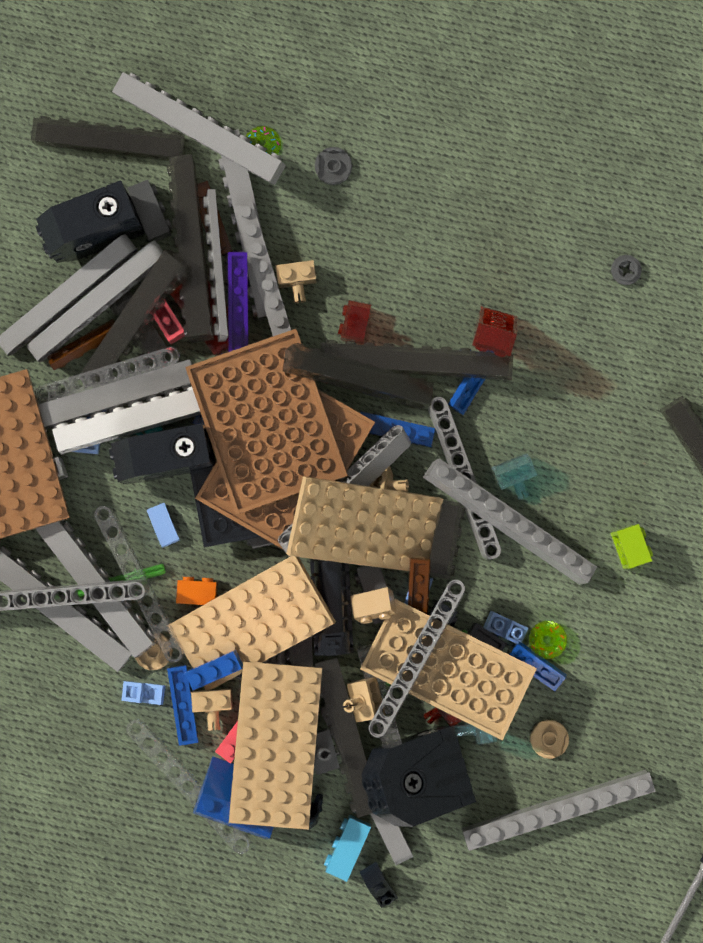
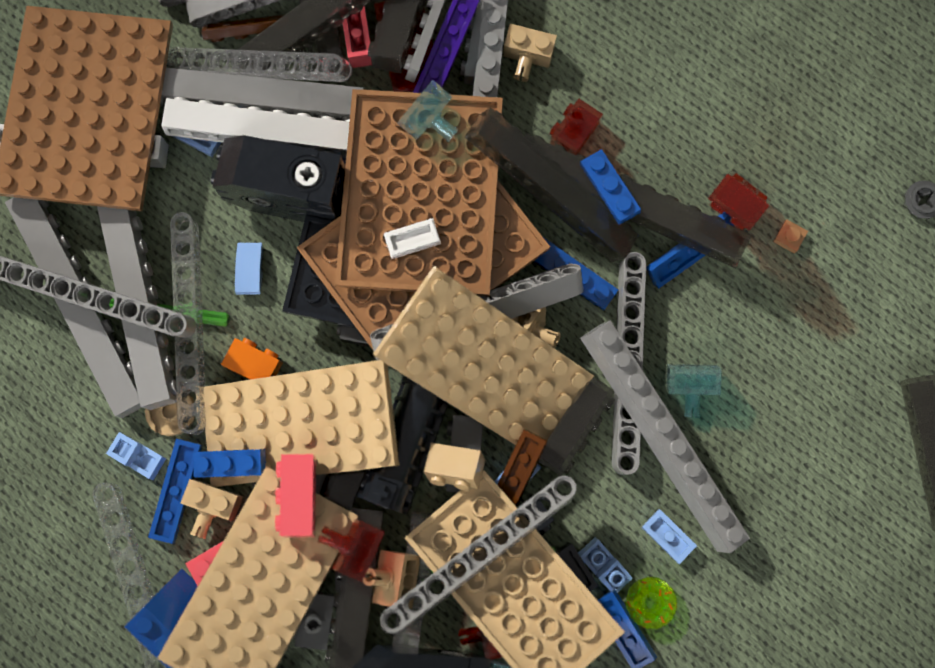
camera: 30 degrees right, 5 degrees down
(248, 365) = (427, 113): none -> clear light blue brick
(274, 673) = (296, 495): none -> coral brick
(276, 459) = (412, 238): none -> white tile
(331, 691) = (354, 549): none -> clear red brick
(399, 359) = (610, 187): none -> blue plate
(541, 336) = (790, 236): none -> medium nougat plate
(541, 588) = (669, 536): none -> light blue plate
(632, 546) = (803, 531): lime brick -> none

